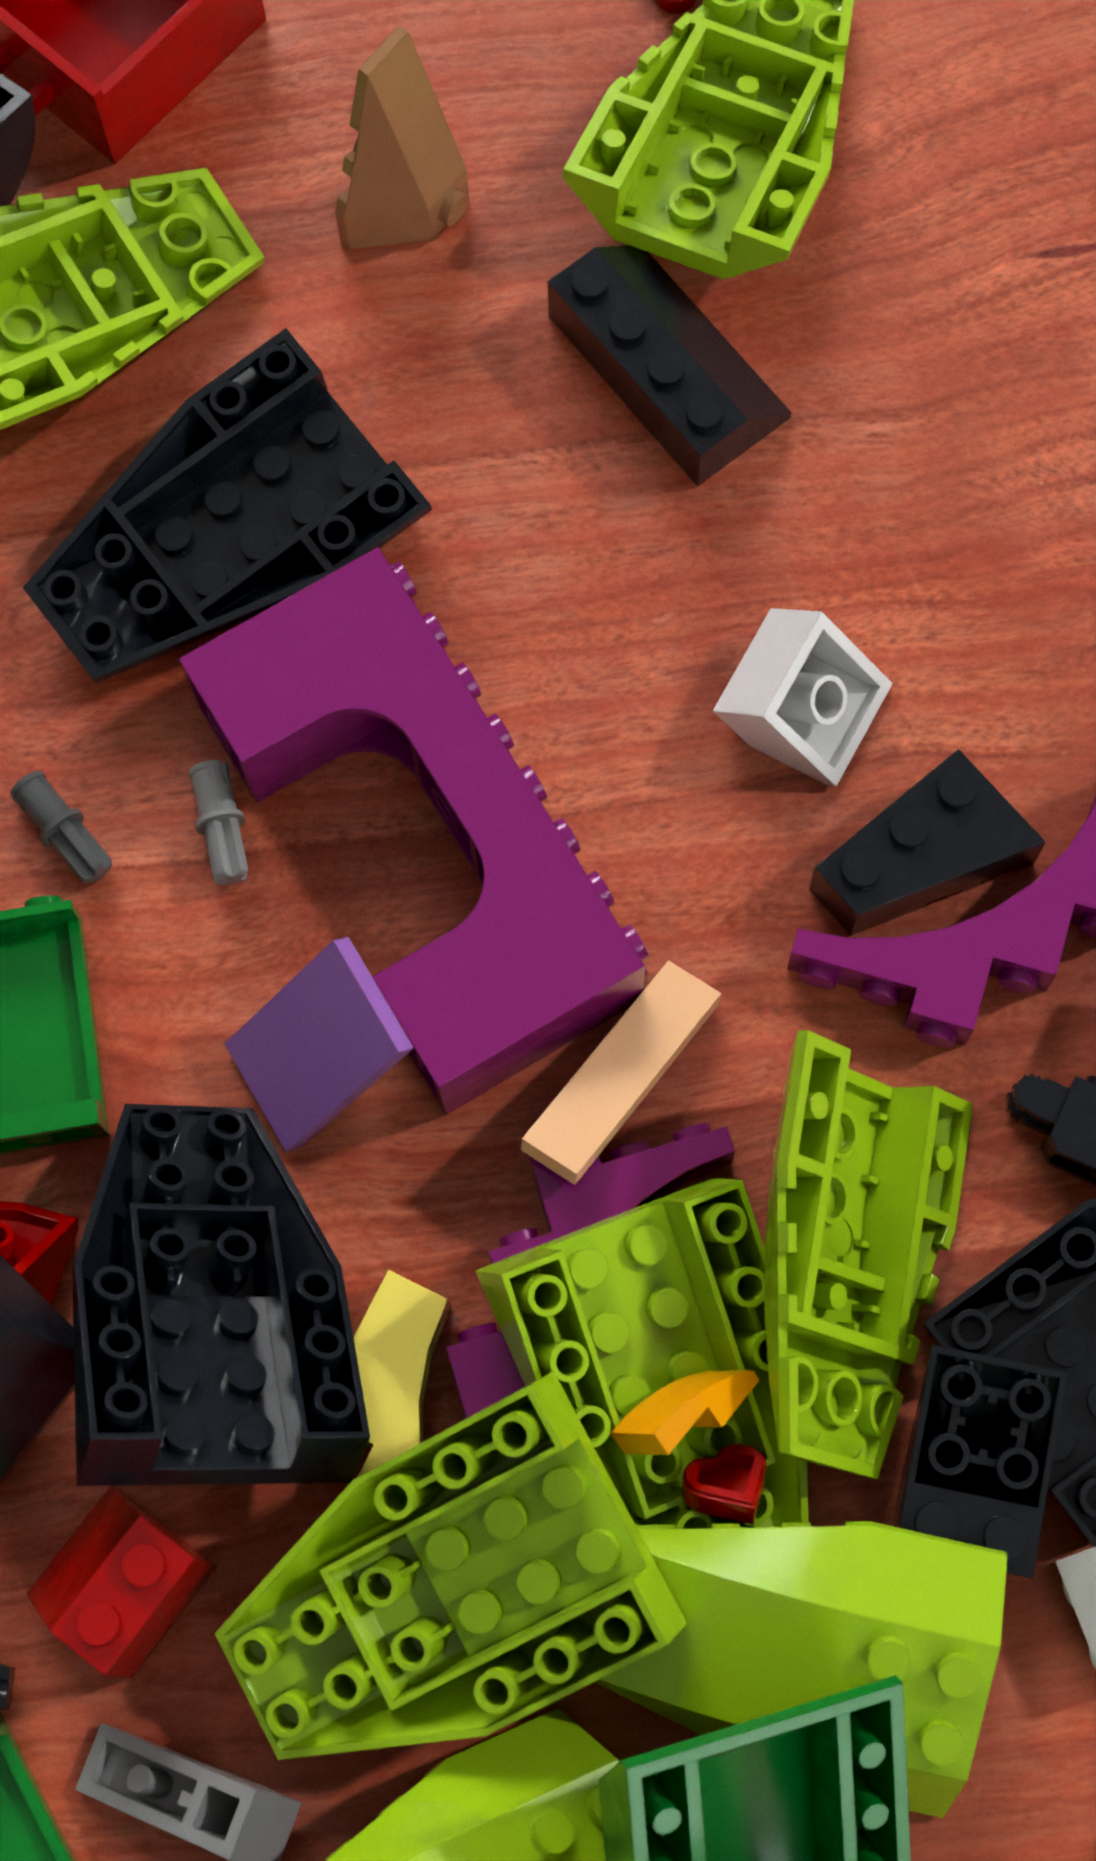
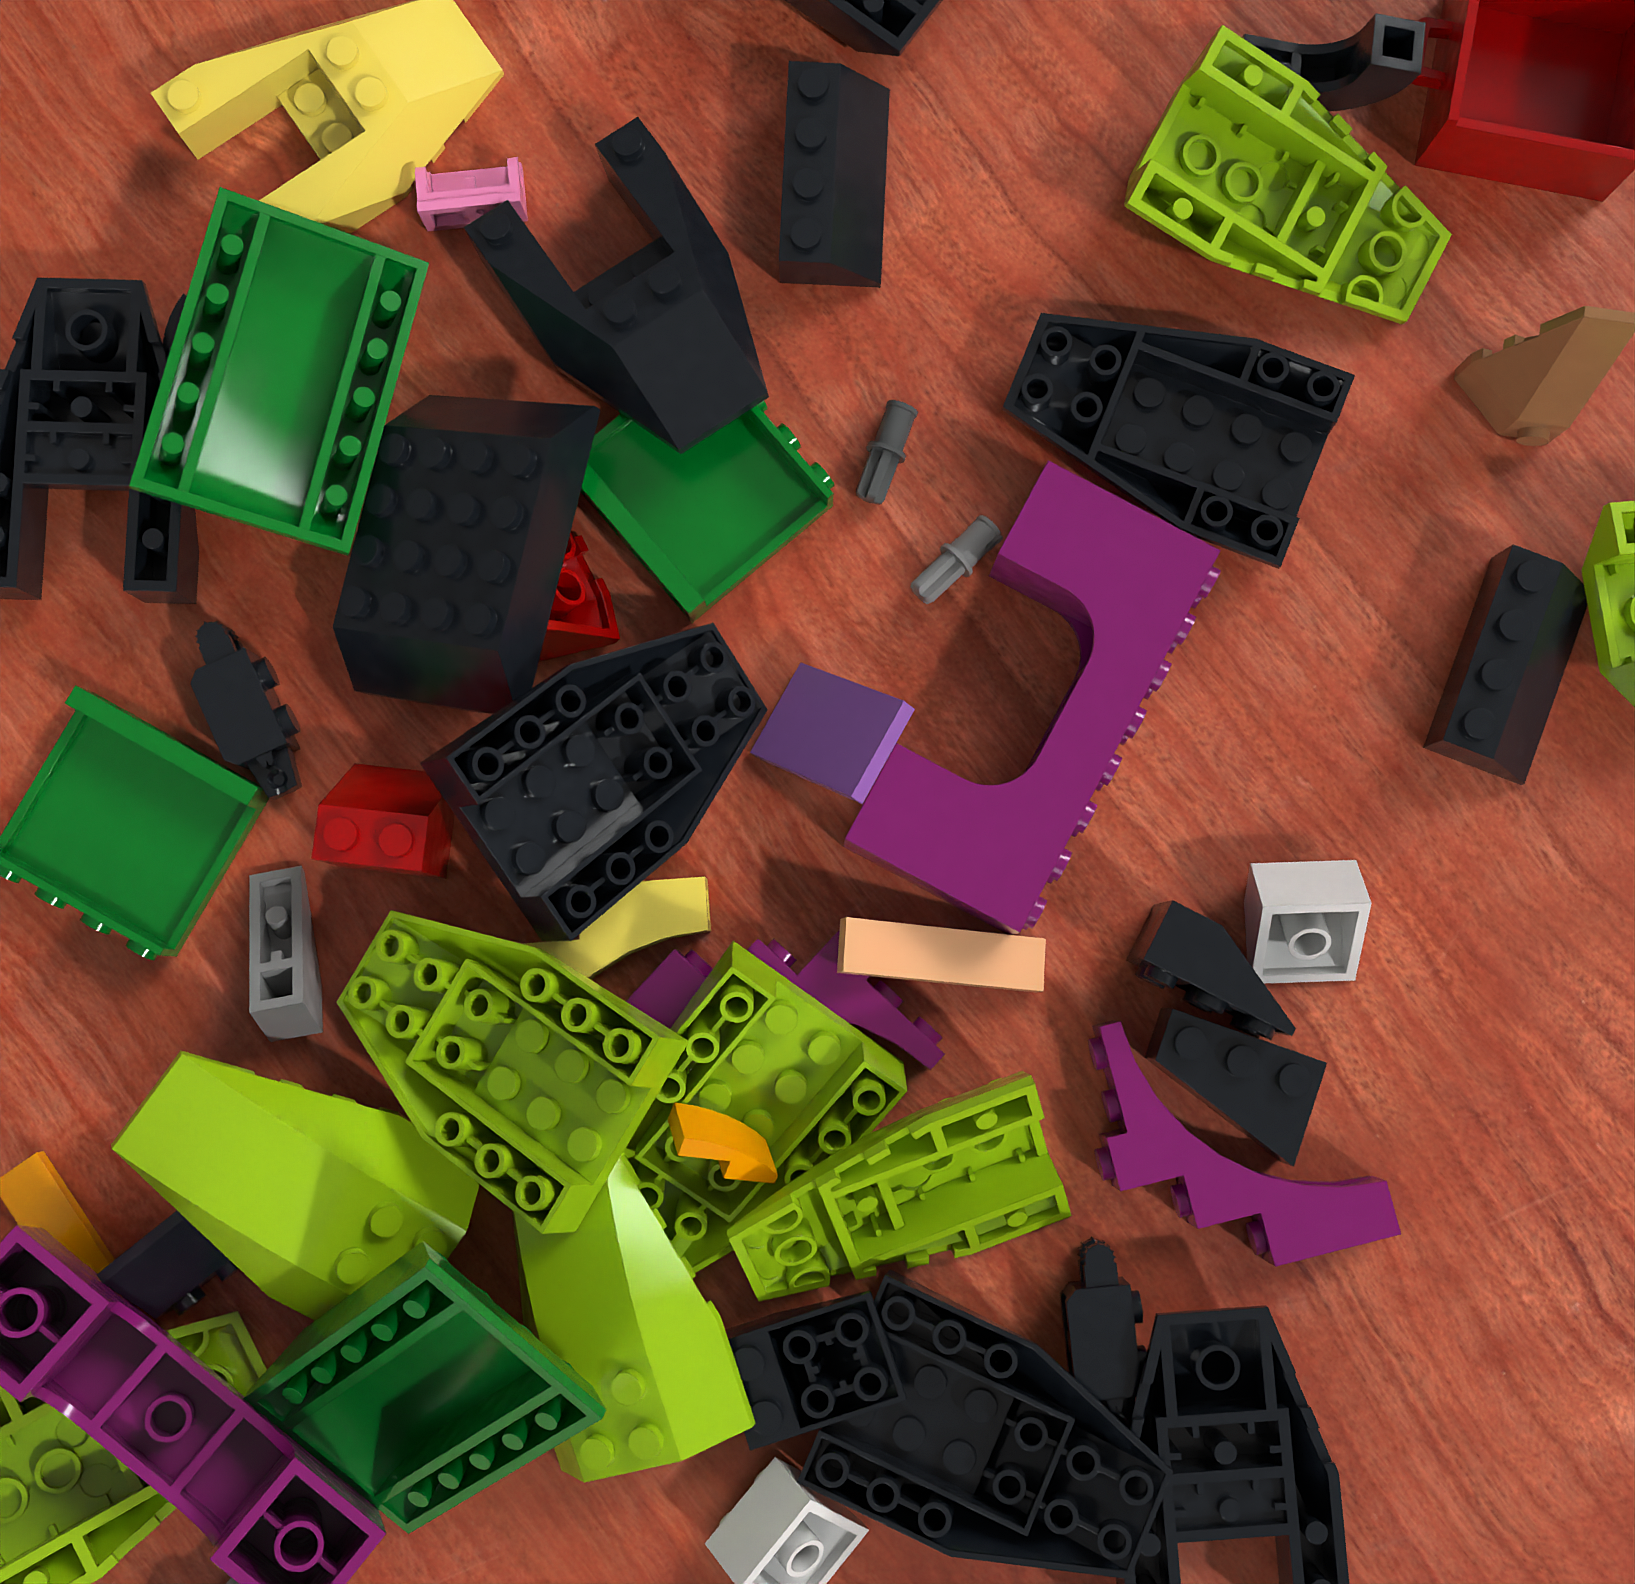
camera: 55 degrees right, 10 degrees up
(726, 1484) = (692, 1200): red tile -> none
(793, 810) = (1203, 960): none -> black slope

